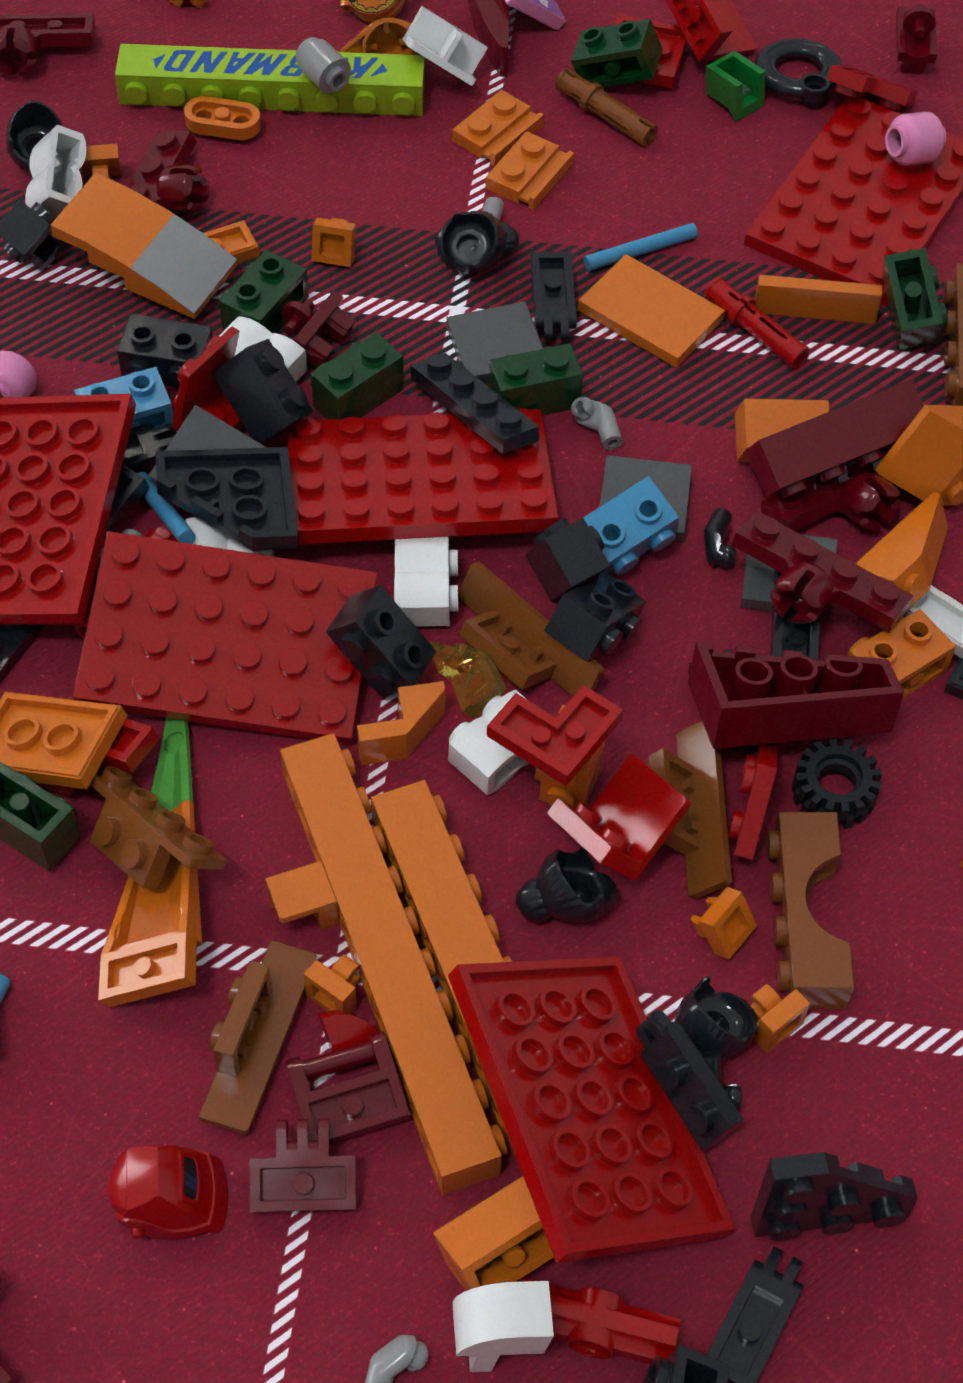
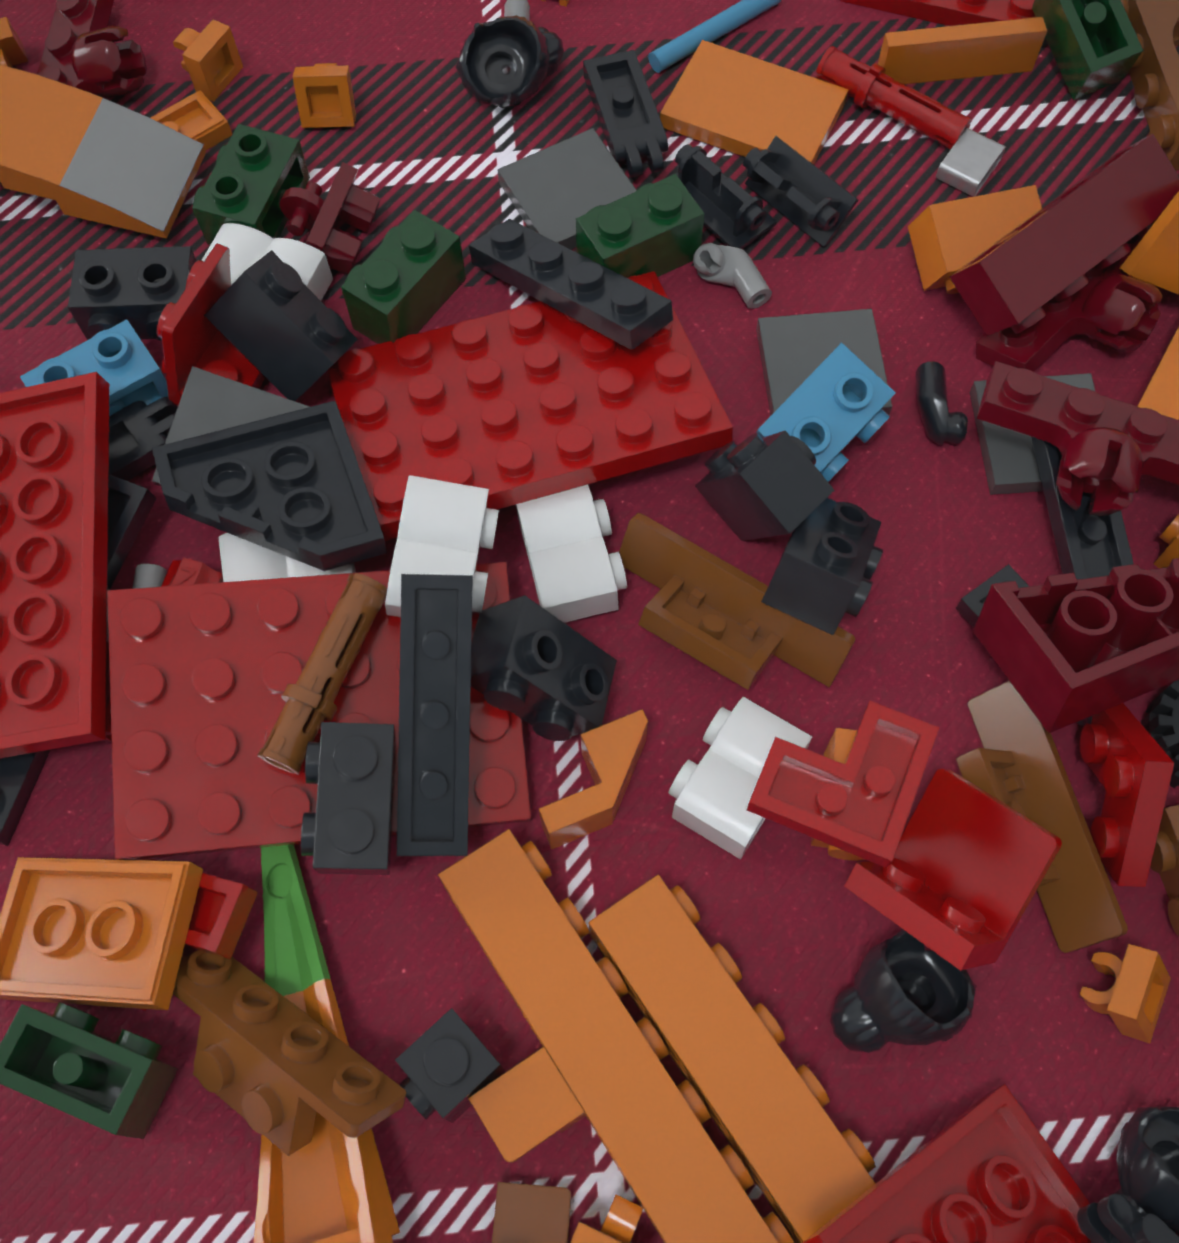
camera: 10 degrees left, 10 degrees up
(168, 513) = (192, 534): dark azure bar -> none
(225, 622) = (313, 694): none -> dark orange pin
(237, 689) = (353, 799): none -> black brick
(252, 860) = (446, 1068): none -> black brick
(256, 199) = (210, 57): none -> orange tile
(302, 646) = (434, 714): none -> black plate
(331, 550) = (442, 535): none -> white brick
(471, 674) = (672, 681): clear yellow slope -> none
(602, 369) = (727, 207): none -> black hinge
(663, 372) = (798, 190): none -> black hinge
(802, 378) = (970, 162): none -> flat silver piece

